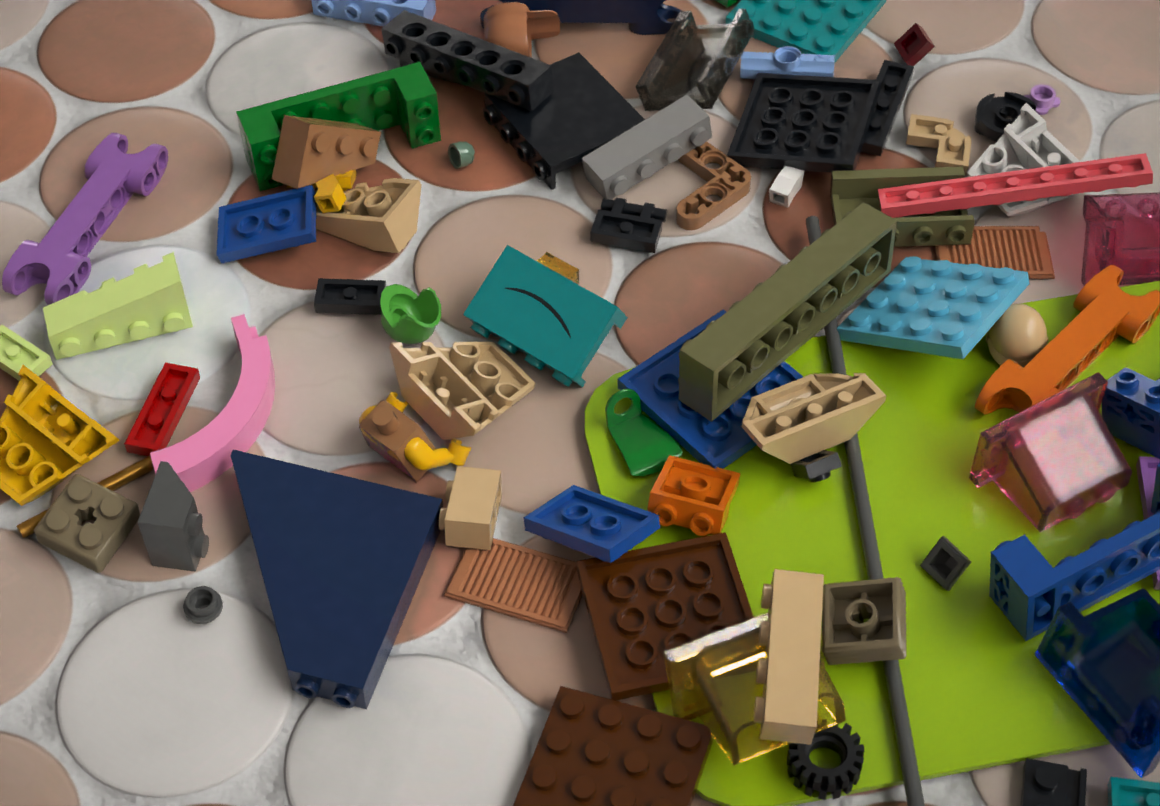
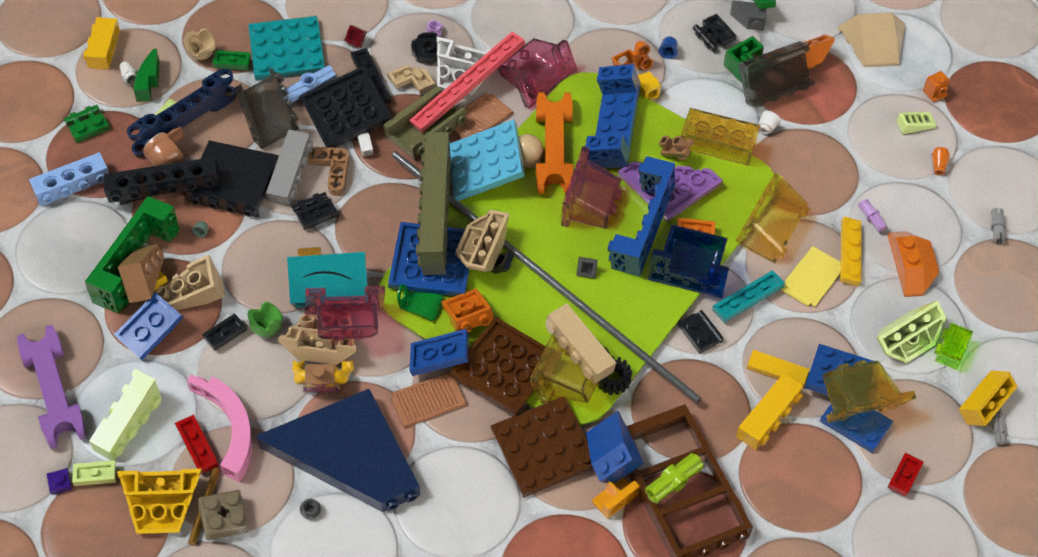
camera: 45 degrees left, 5 degrees up
(172, 523) = (266, 483): dark grey slope -> none
(329, 194) = (166, 290): yellow piece -> none
(471, 508) = (382, 383): tan brick -> none
(510, 377) = (345, 316): none -> clear pink windscreen
(843, 631) = (584, 300): dark tan brick -> none

